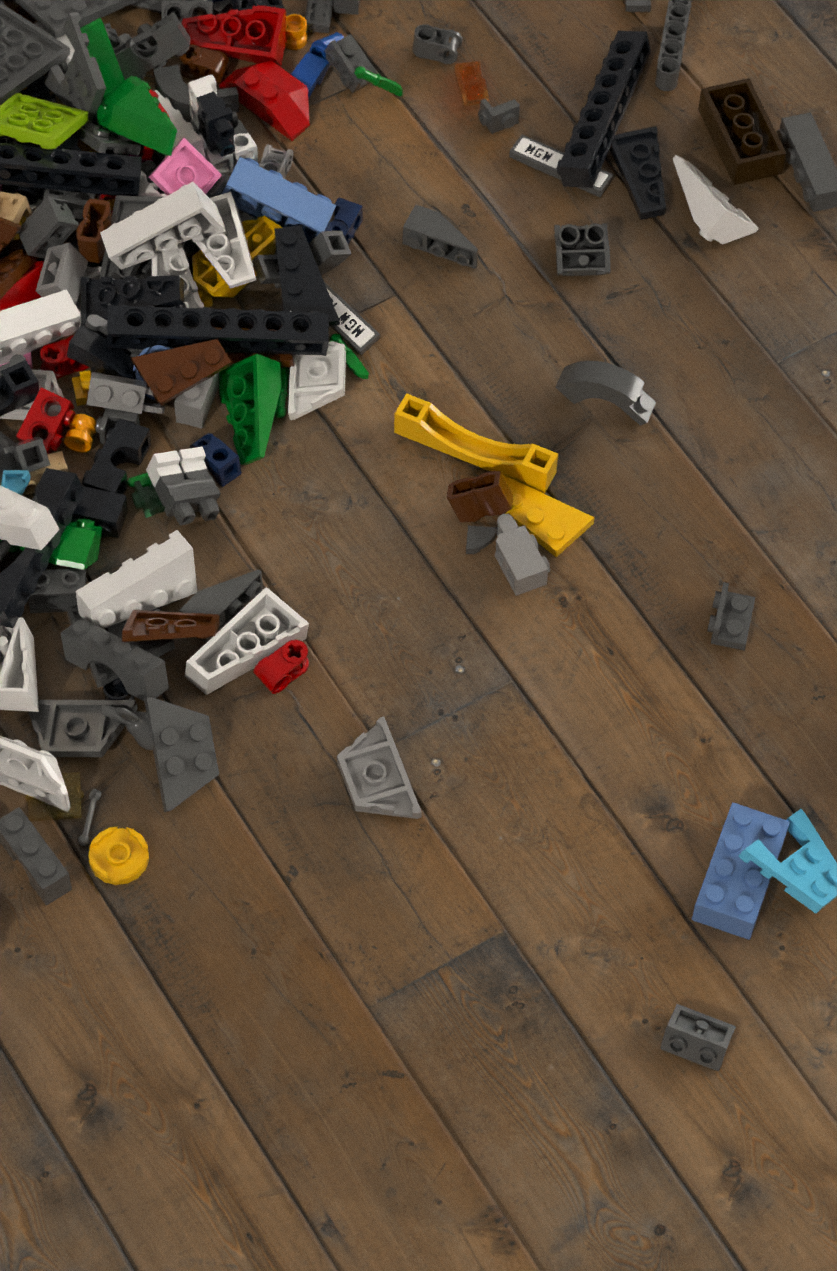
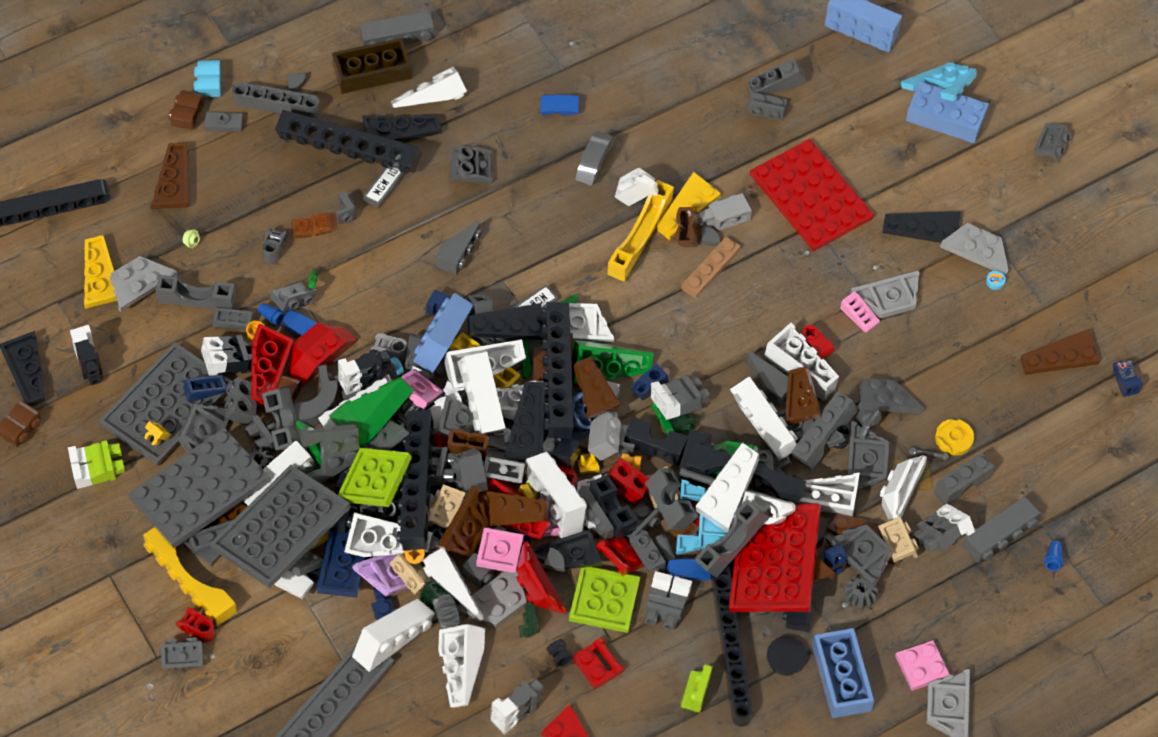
camera: 90 degrees left, 0 degrees up
(221, 1117) = (1127, 378): none -> dark blue leg
(272, 1031) = (1067, 353): none -> reddish brown wing
(348, 716) = (857, 302): none -> bright pink slope
(414, 932) = (995, 280): none -> medium azure tile
(424, 540) = (710, 267): none -> medium nougat plate
(473, 904) = (977, 247): none -> light grey wing
(515, 839) = (922, 226): none -> black wing
(548, 431) = (635, 187): none -> white piece
(566, 676) = (811, 194): none -> red plate
(701, 352) = (561, 104): none -> blue slope
(712, 59) = (296, 81): none -> dark grey tile
(784, 633) = (779, 78): none -> dark grey slope

